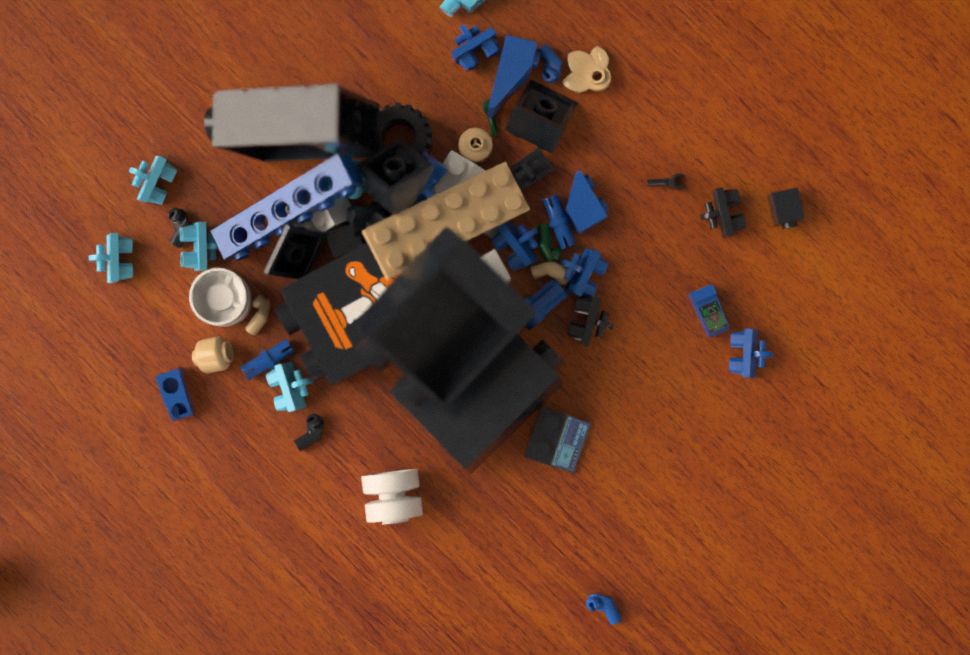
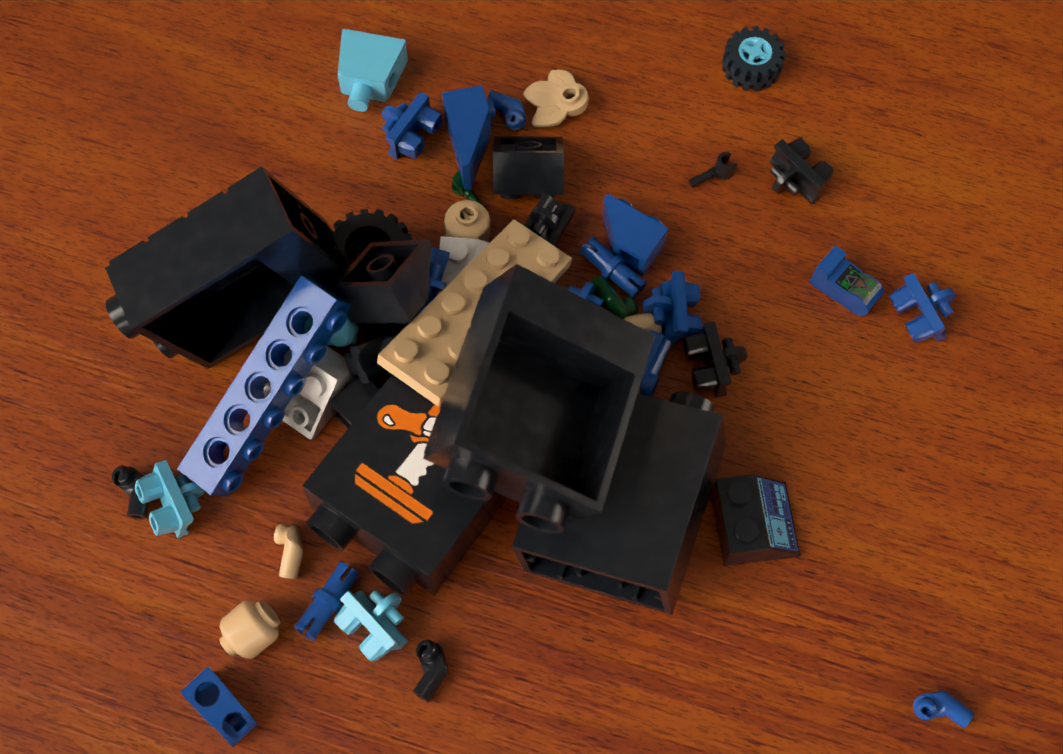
camera: 25 degrees left, 20 degrees down
(115, 270) = (55, 552): medium azure hips -> none
(158, 169) = (75, 463): medium azure hips -> none
(220, 297) = (227, 544): white wheel -> none
(295, 252) = (300, 433): black slope -> none
(393, 503) = (591, 703): white wheel -> none
(751, 101) = (744, 49): none -> black wheel
(786, 208) = (864, 135): black brick -> none

